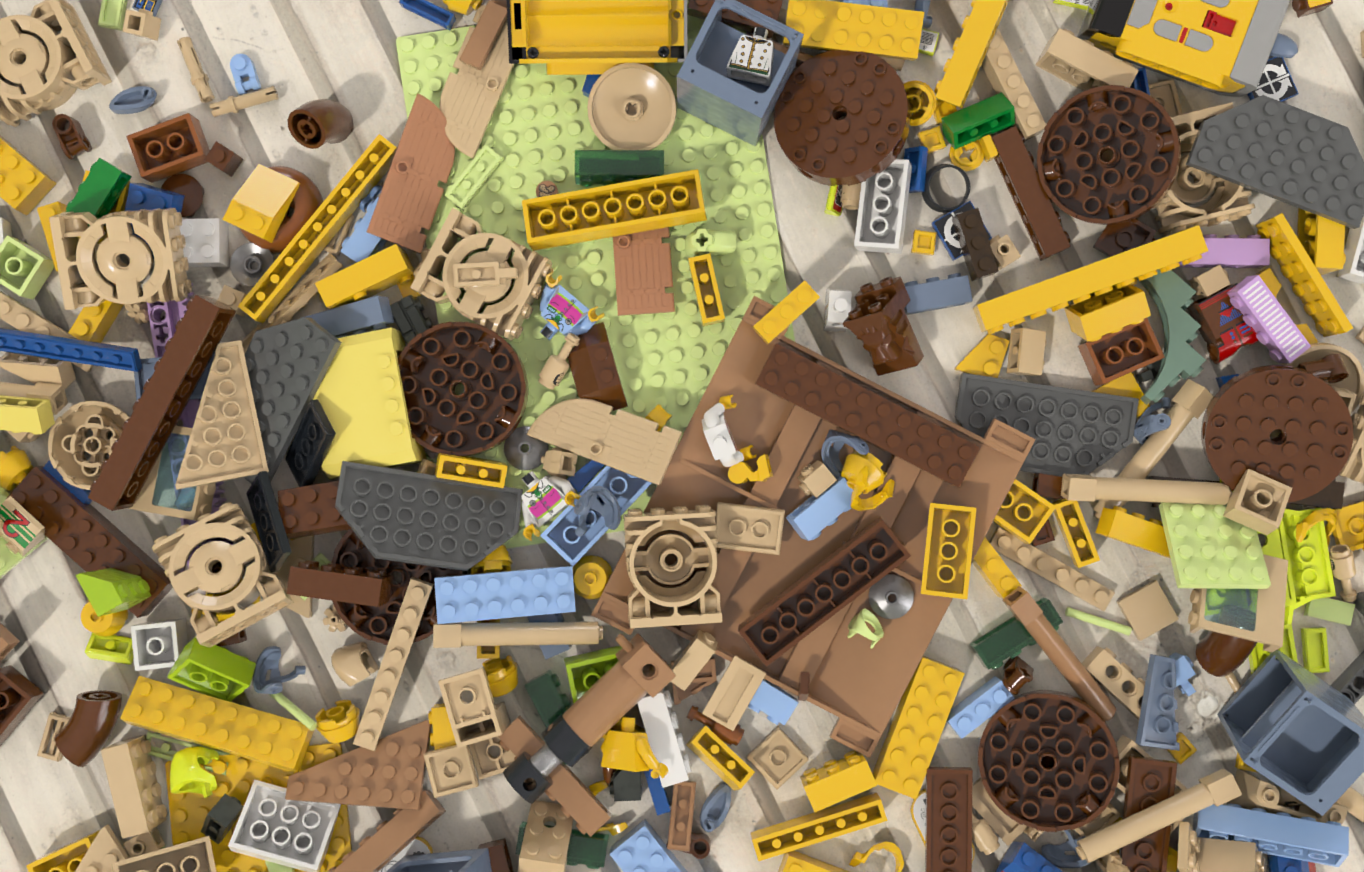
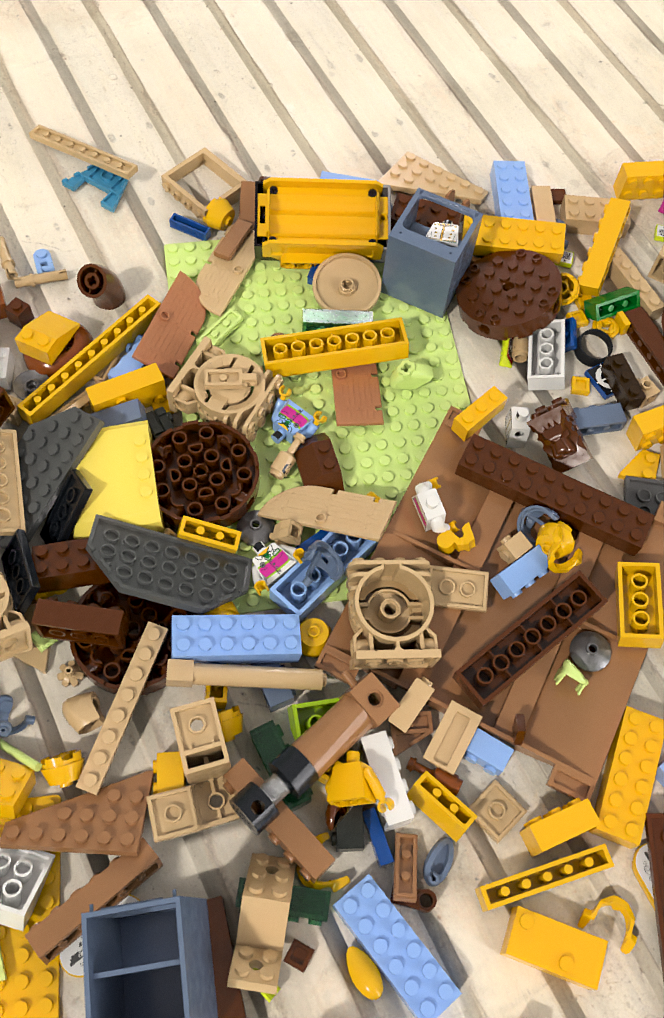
camera: 10 degrees left, 25 degrees down
(706, 289) = (410, 407): yellow brick -> none

